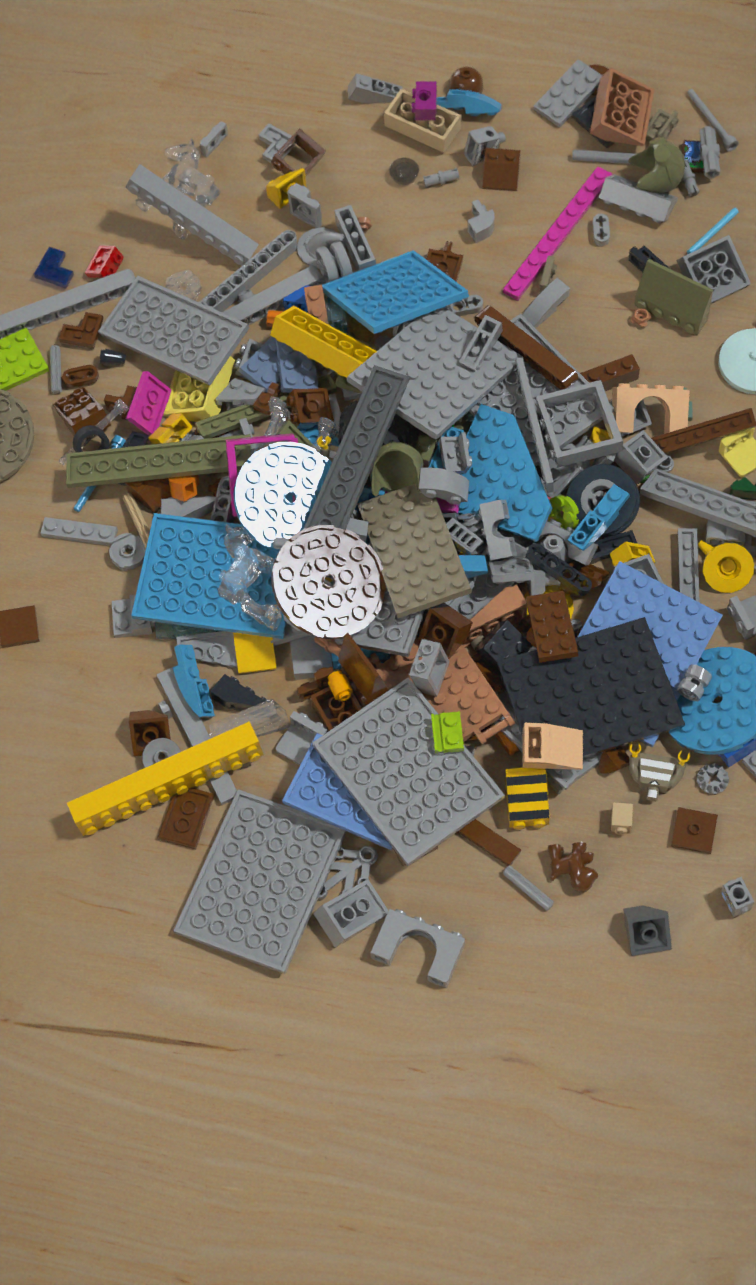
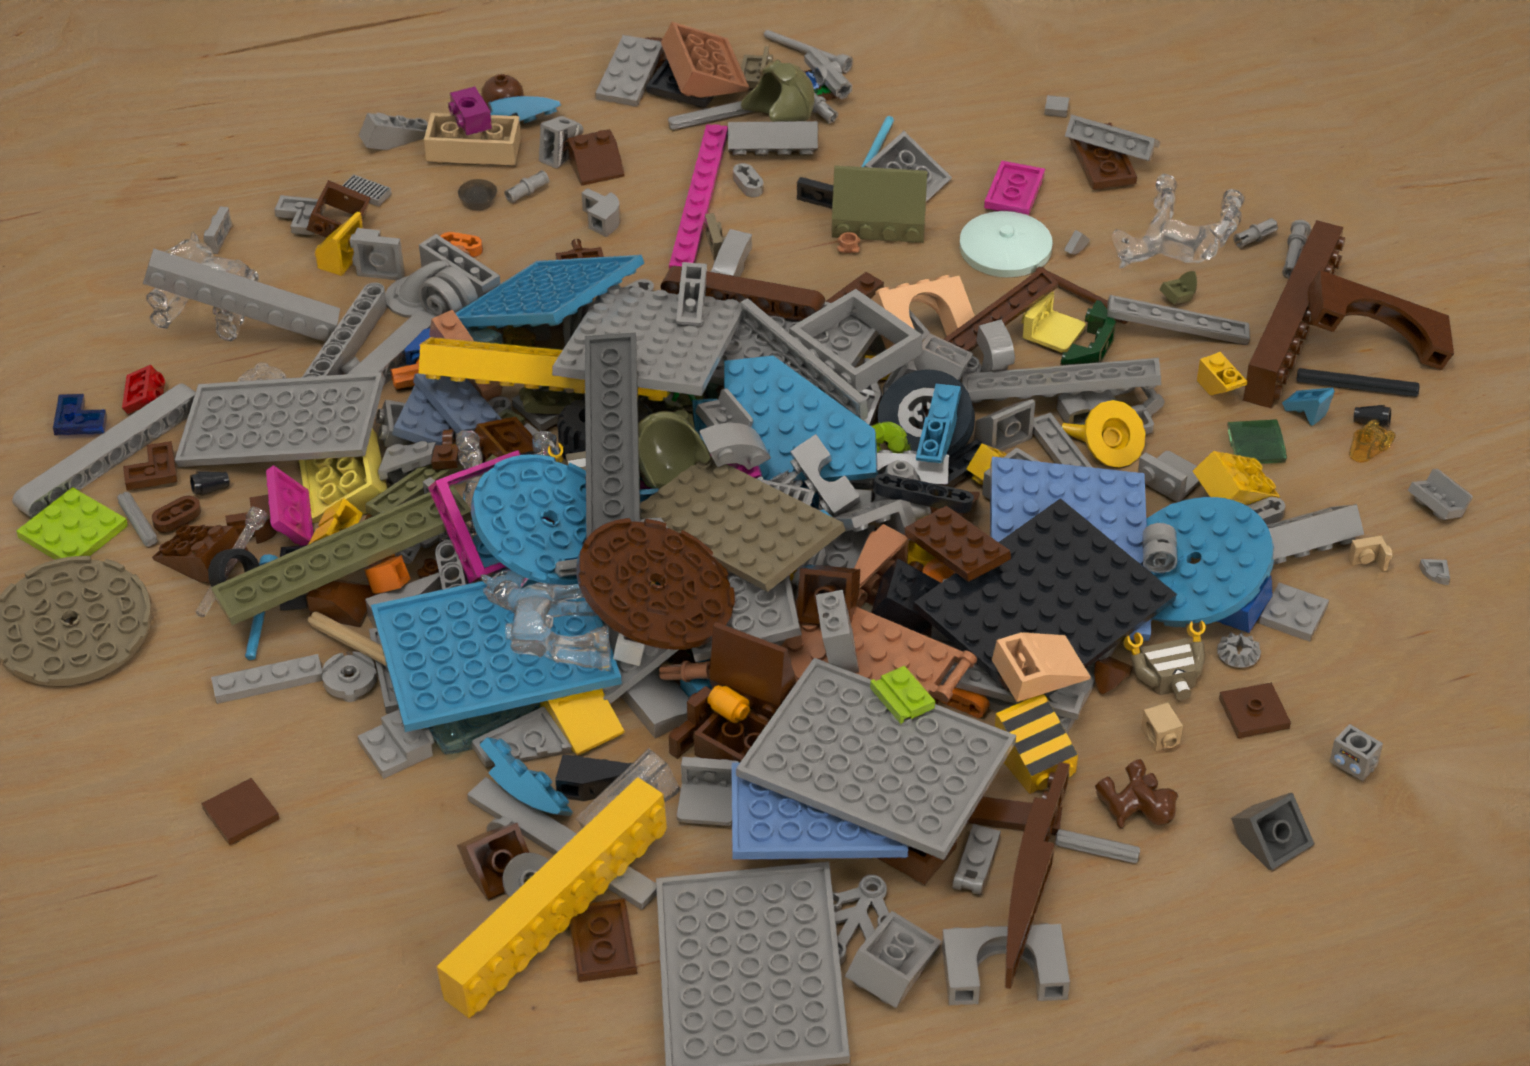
camera: 30 degrees left, 20 degrees down
(330, 138) = (376, 191): none -> light grey tile
(372, 212) = (470, 242): none -> orange beam
(446, 863) = (977, 859): none -> light grey plate
(468, 892) = (1033, 868): none -> reddish brown slope
(657, 528) = (1007, 426): none -> light grey slope
(684, 459) = (996, 346): none -> light grey brick

